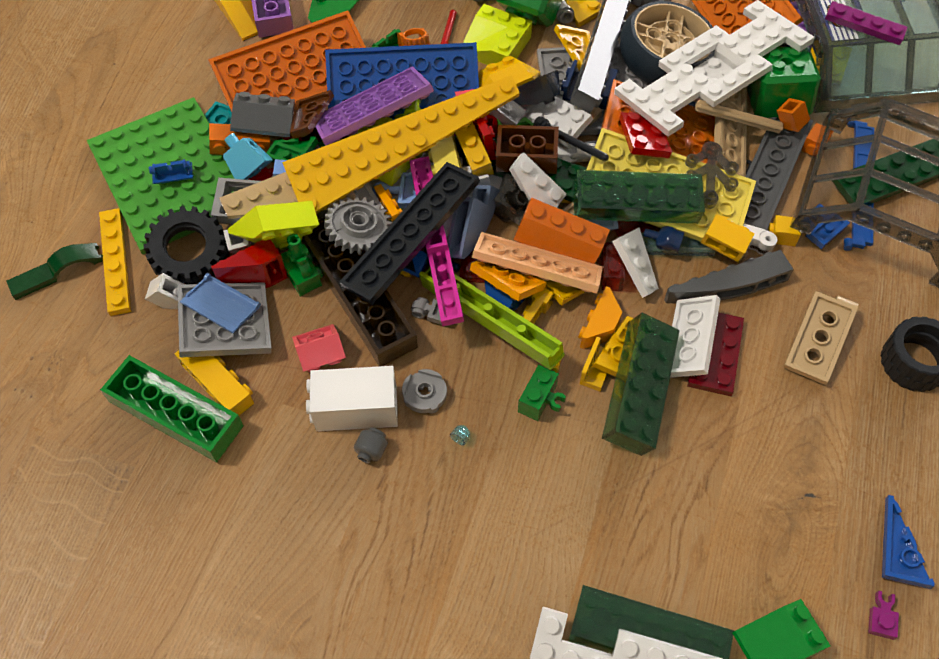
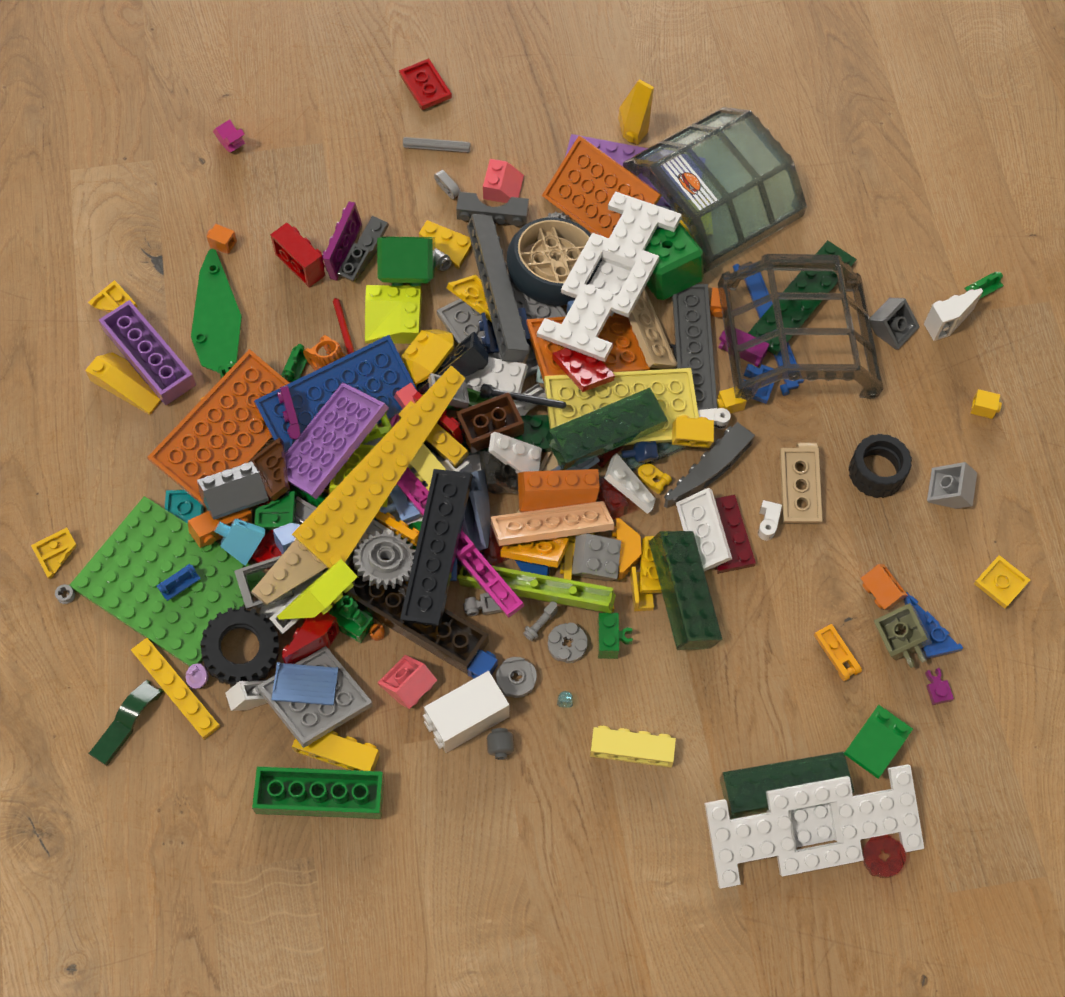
camera: 30 degrees left, 5 degrees up
(78, 141) = (60, 590): none -> light grey bush
(93, 109) = (54, 551): none -> yellow wing
(137, 258) = (196, 676): none -> lavender hat
(319, 292) = (379, 634): none -> orange hinge
(349, 72) = (289, 413): none -> magenta hinge
(402, 363) = (482, 663): none -> blue brick
(492, 345) = (549, 612): none -> light grey hinge
(494, 370) = (564, 653): none -> light grey plate
(503, 513) = (632, 746): none -> light yellow brick
(565, 312) = (596, 557): none -> light grey brick
(665, 263) = (648, 473): none -> yellow plate
(713, 152) = (652, 375): clear smoke plant -> none
(739, 116) = (651, 311): tan axle -> none
(765, 362) = (771, 517): none -> white leg
(781, 522) = (837, 652): none -> light orange plate
(793, 114) = (692, 290): orange brick -> none
(827, 192) = (753, 354): none -> magenta brick
(861, 548) = (912, 640): none -> olive hinge
(866, 23) = (717, 183): magenta plate -> none
(867, 478) = (883, 587): none -> orange brick

